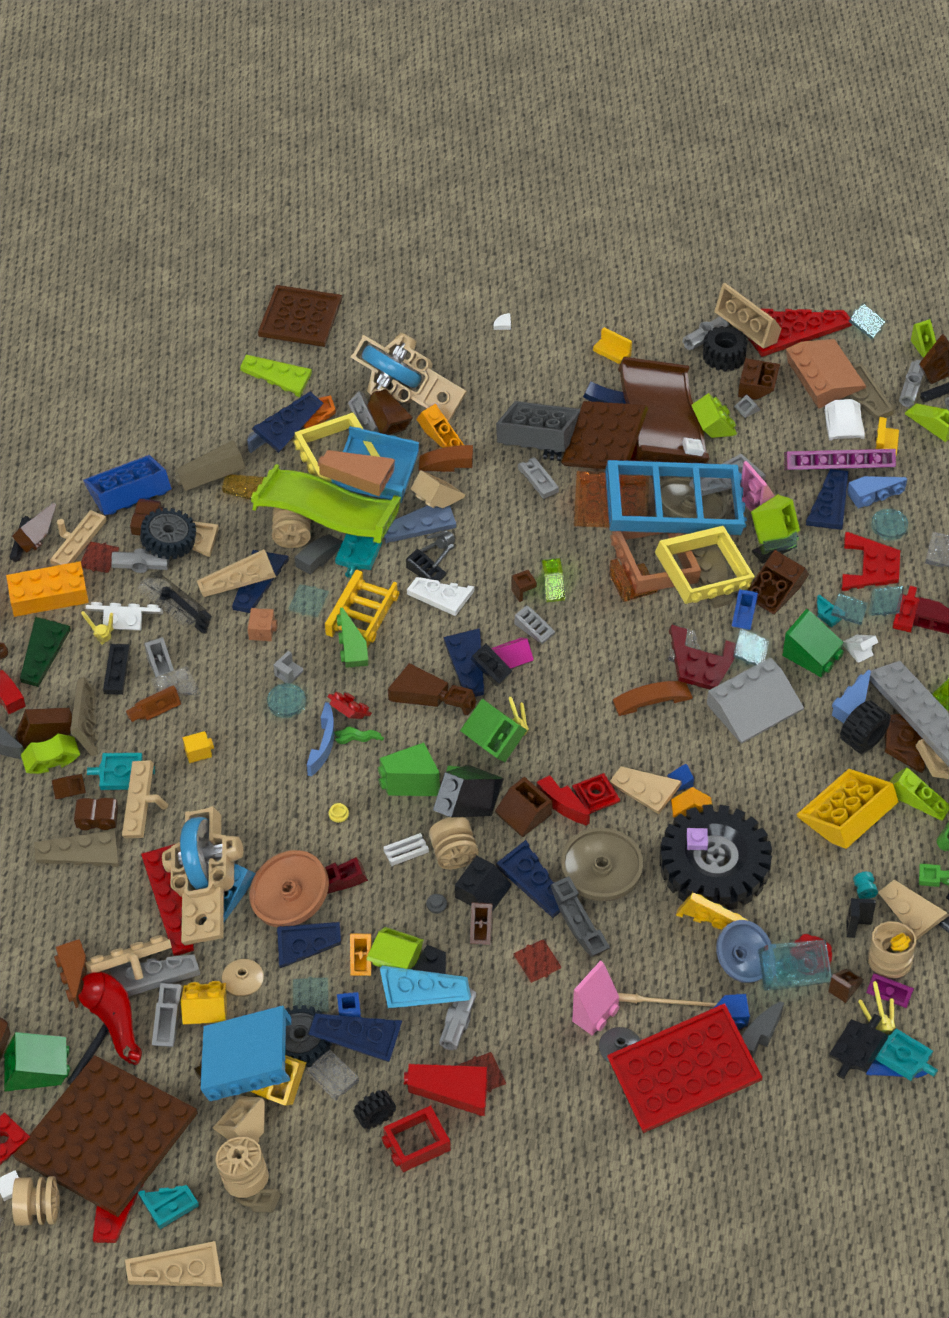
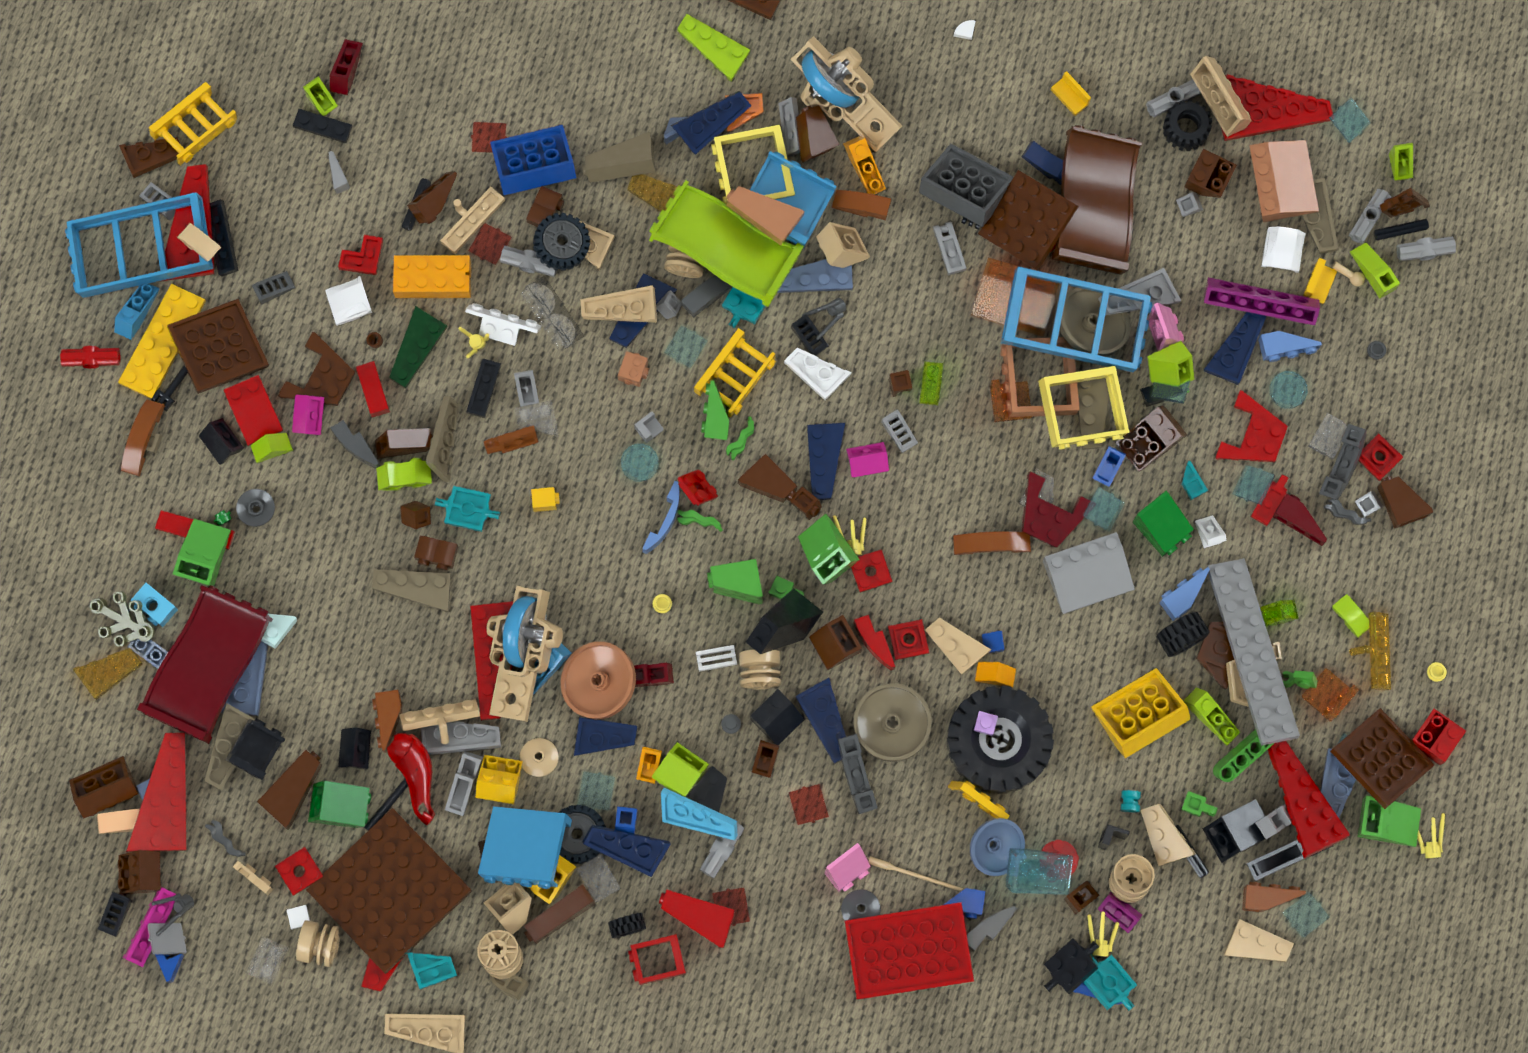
camera: 10 degrees right, 25 degrees up
(43, 1007) = (354, 748): none -> black panel
(75, 475) = (485, 133): none -> clear red piece
(138, 799) = (478, 548): tan plate -> none
(202, 617) = (577, 349): black hinge -> none
(284, 569) = (669, 305): none -> light grey slope
(299, 1114) = (559, 914): none -> reddish brown slope
(381, 668) = (739, 446): none -> bright green hair
(491, 665) = (844, 475): black brick -> none
(543, 734) = (877, 561): none -> red piece
(693, 446) = (1114, 255): white tile -> none
(714, 417) = (1149, 215): lime slope -> none
(849, 609) = (1214, 485): clear light blue piece -> none
(900, 942) = (1138, 879): yellow plate -> none
(918, 431) = (1356, 278): none -> tan bar

